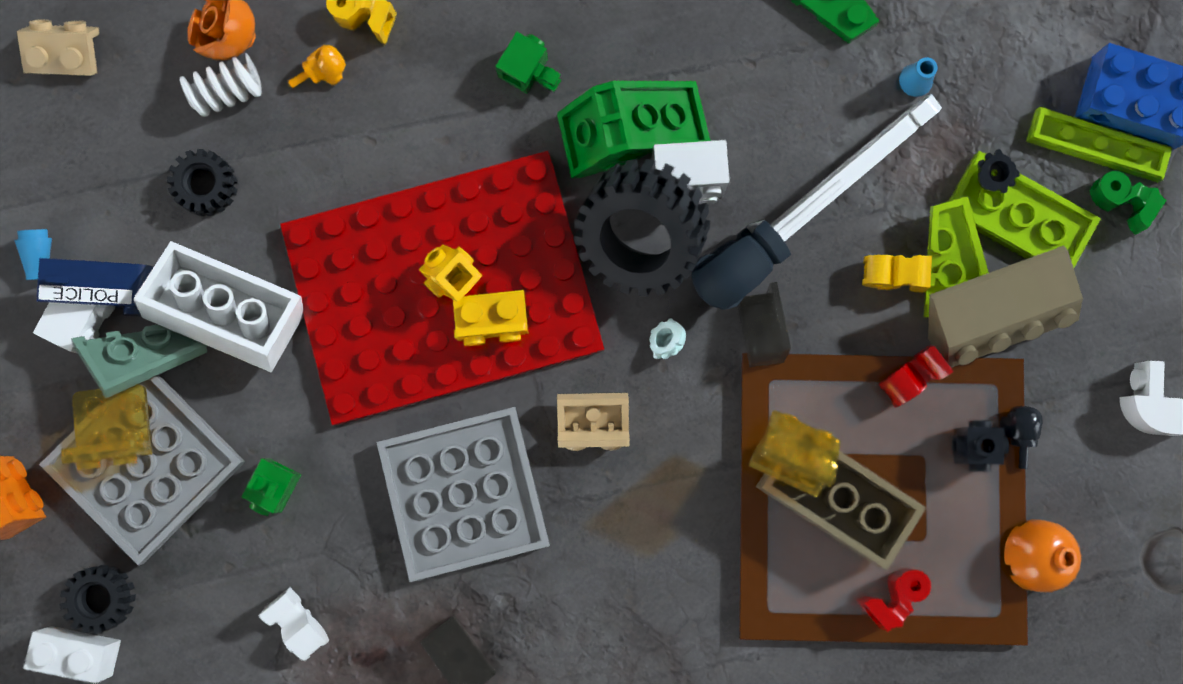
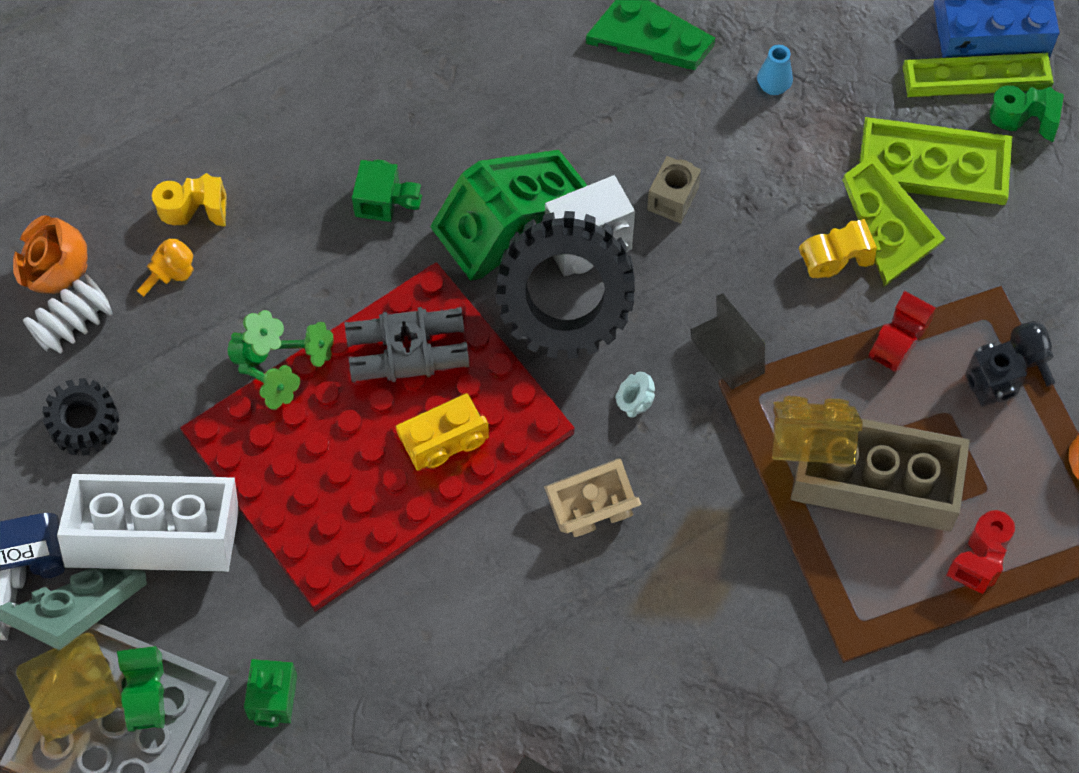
camera: 20 degrees left, 20 degrees down
(164, 458) = (144, 691): none -> green leg
(365, 178) = (263, 334): none -> bright green plant
(449, 272) = (384, 397): yellow brick -> none
(462, 494) = (484, 625): light grey plate -> none
(481, 208) = (418, 328): none -> dark grey pin
(744, 263) = (670, 303): piece -> none
(769, 168) = (669, 201): none -> dark tan brick
(1004, 171) = (894, 120): black animal -> none
(1004, 307) = (957, 237): dark tan slope -> none

